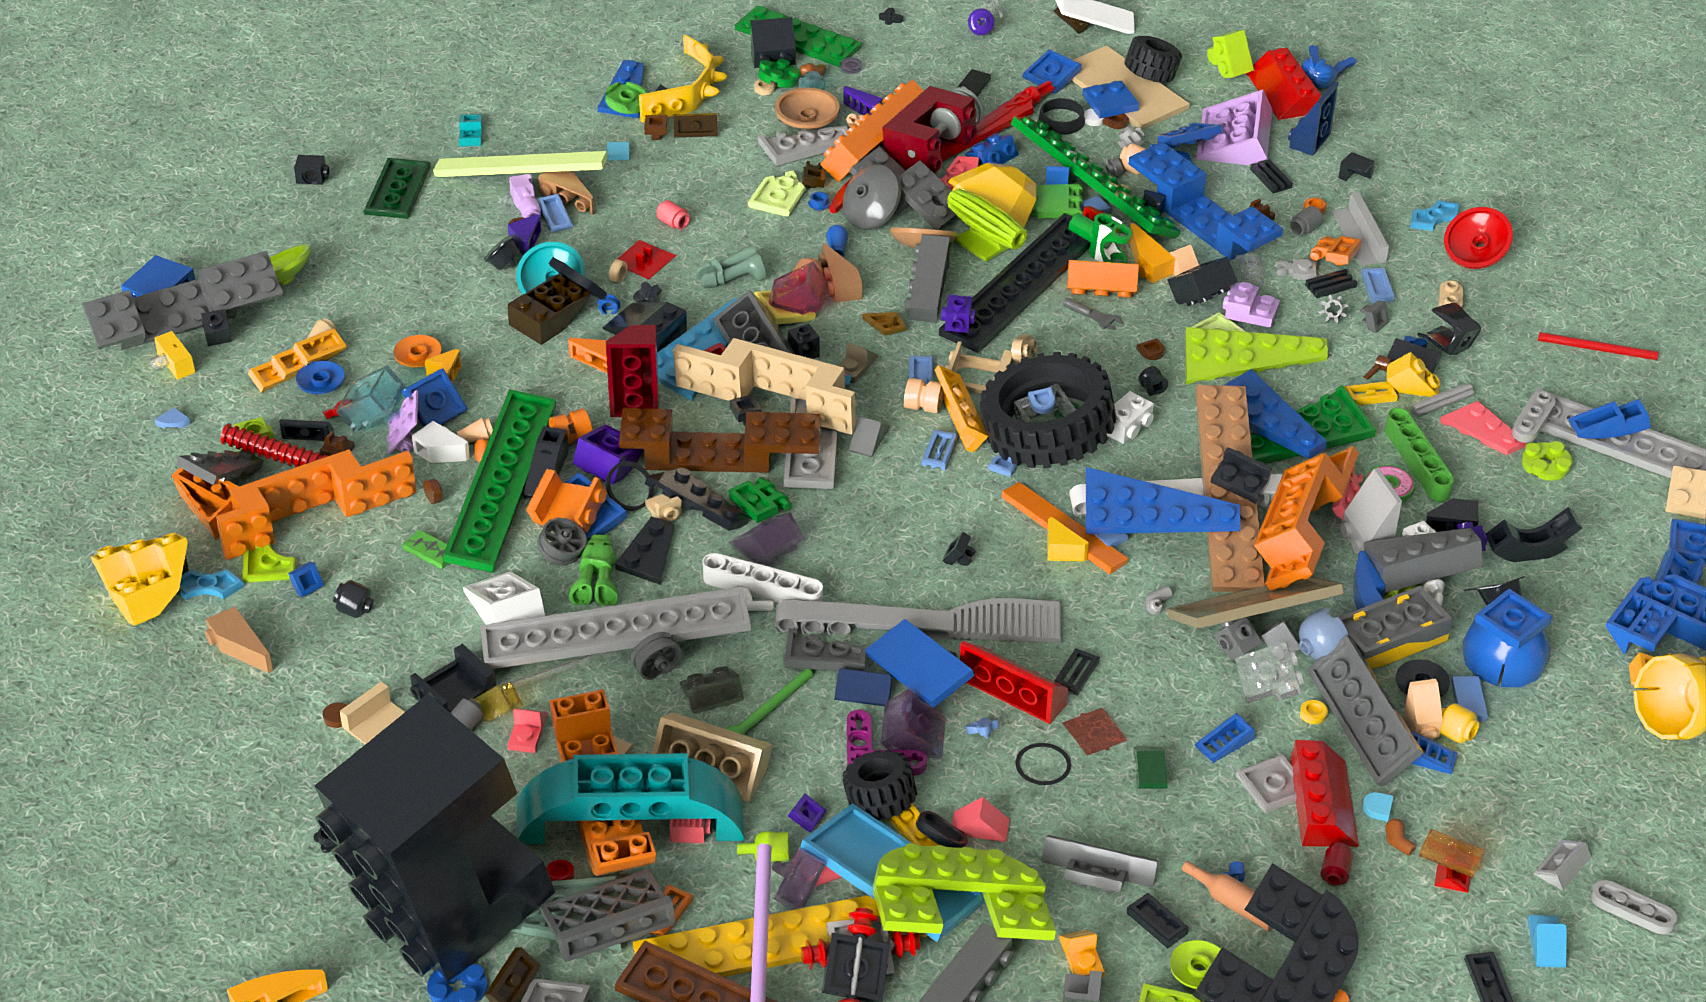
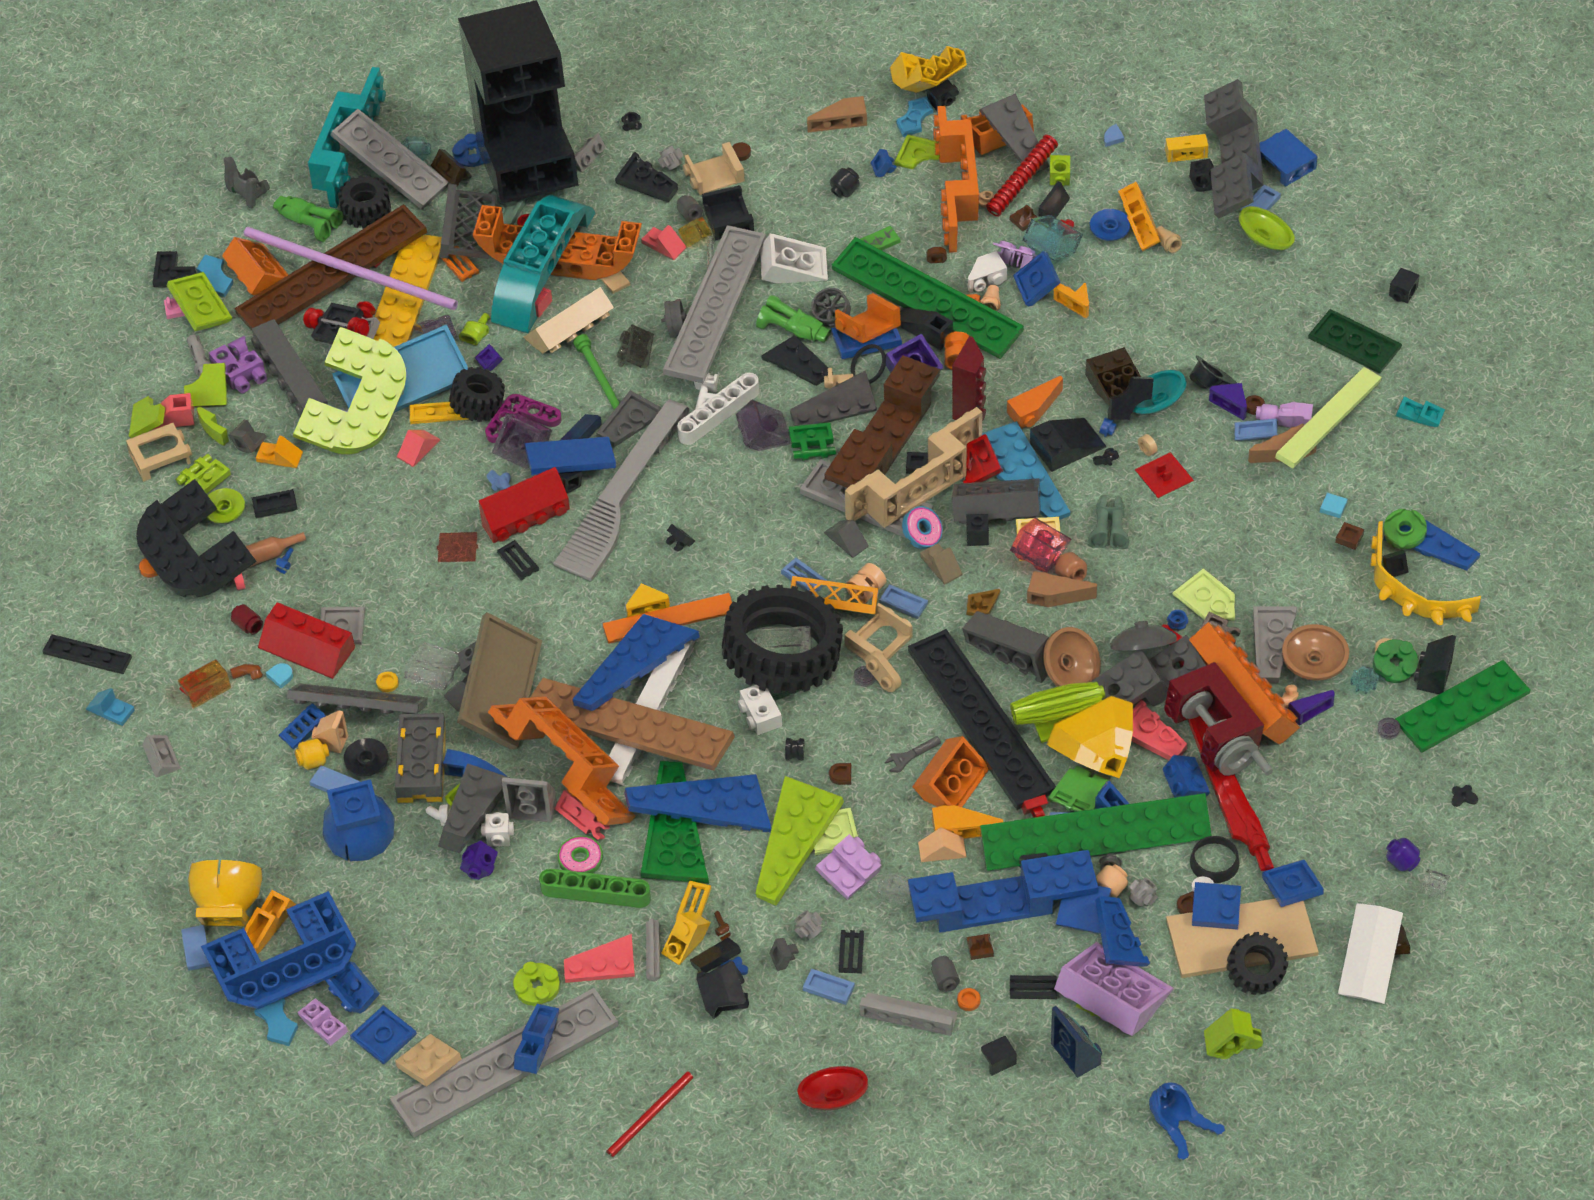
camera: 120 degrees right, 10 degrees up
(416, 349) = (1108, 283): orange dish -> none
(673, 215) = (1208, 507): coral brick -> none
(695, 125) = (1338, 576): dark brown tile -> none
(821, 69) = (1384, 689): dark orange arm -> none
(837, 238) = (1110, 609): blue cone -> none
(940, 830) = (422, 417): black tile -> none
(958, 313) = (940, 633): dark purple brick -> none
(975, 81) = (1307, 812): black tile -> none
(1042, 400) = (794, 639): medium blue tile -> none
(1043, 782) = (449, 521): black piece -> none
(1098, 865) = (332, 486): bracket -> none
(1102, 235) = (994, 787): green connector -> none
(1150, 768) = (405, 556): dark green slope -> none
(1154, 600) = (554, 637): light grey arm -> none
(1202, 282) = (889, 831): black brick -> none
(1236, 722) = (397, 628): blue slope -> none
(1242, 475) = (618, 720): black bracket -> none
(1284, 84) = (1152, 1067): red slope -> none
(1298, 268) = (885, 939): light grey plate -> none
(1320, 634) = (441, 701): cylinder -> none
(1338, 250) = (884, 976): orange plate -> none
(1428, 218) = (902, 1101): dark azure tile -> none
(1450, 292) = (777, 1034): tan plate -> none
(1452, 513) = (508, 873): black slope -> none
(1491, 592) = (418, 852): black piece -> none
(1533, 417) = (583, 997): light grey plate -> none
(1535, 543) = (452, 904): black arch -> none
(1623, 899) = (104, 763): light grey plate -> none

